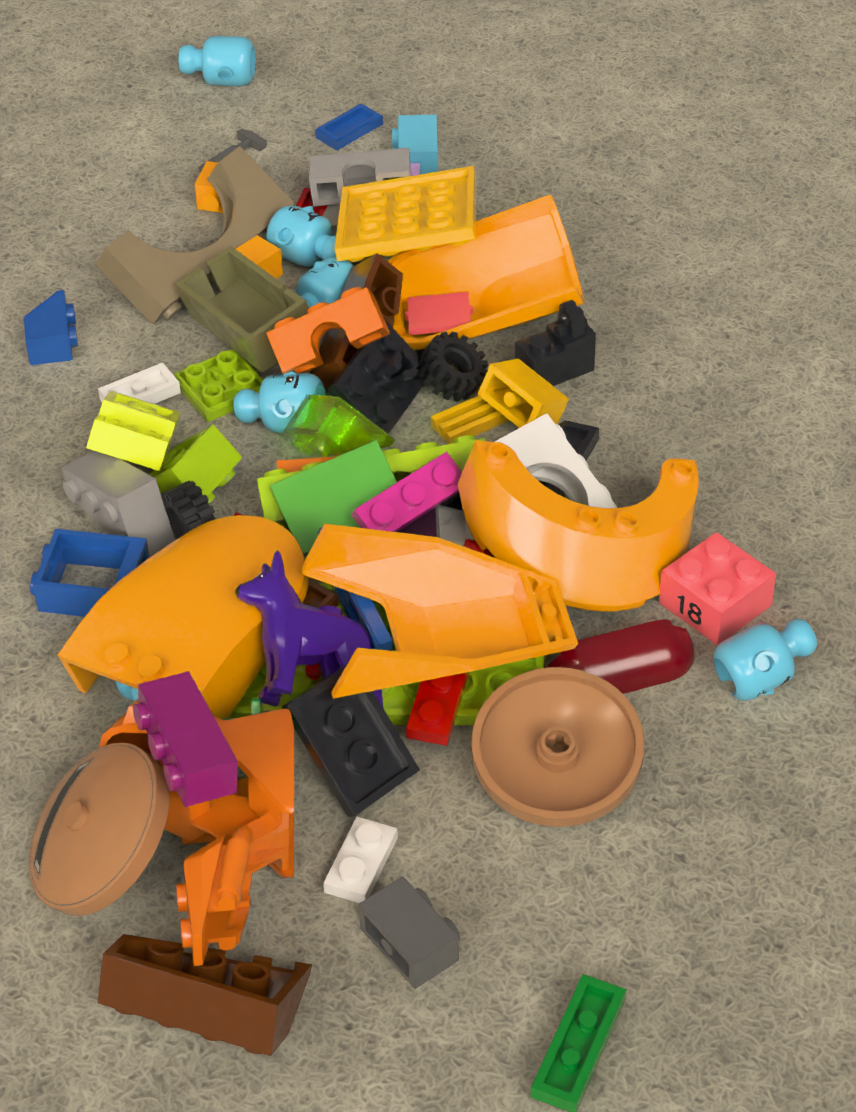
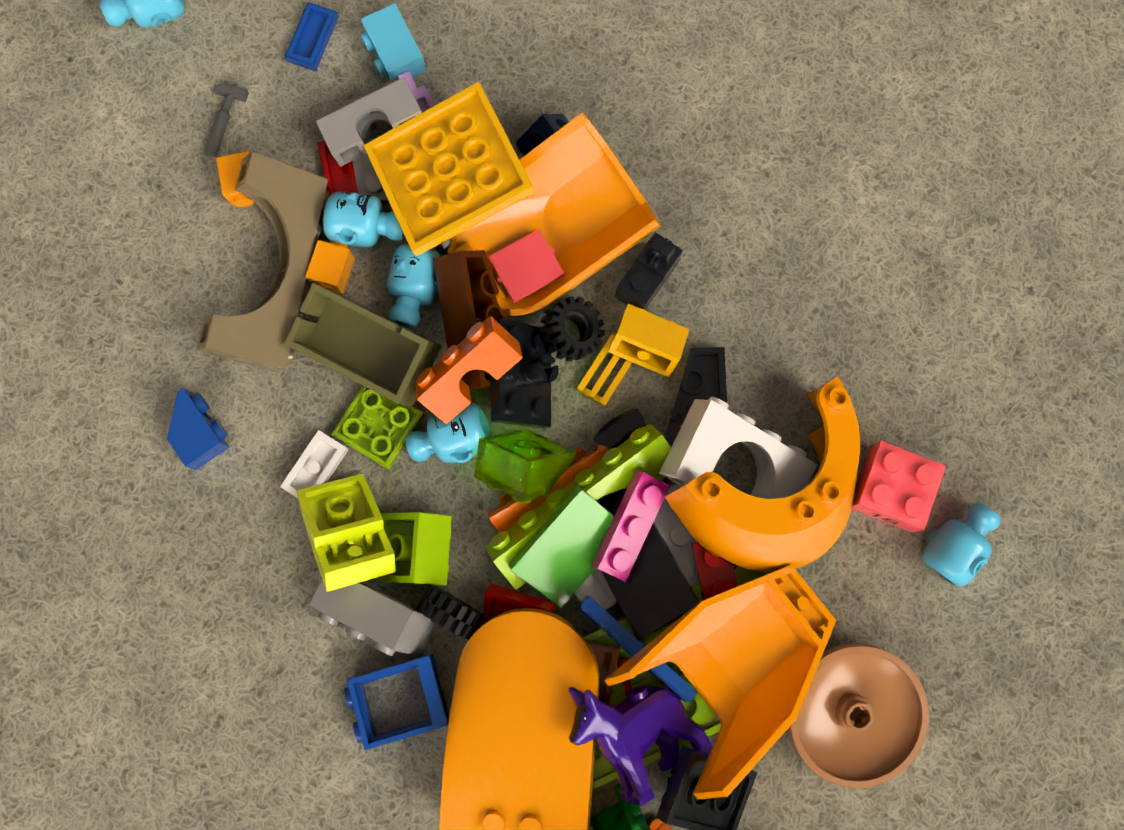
camera: 30 degrees left, 35 degrees up
(633, 655) = (863, 587): dark red brick -> none

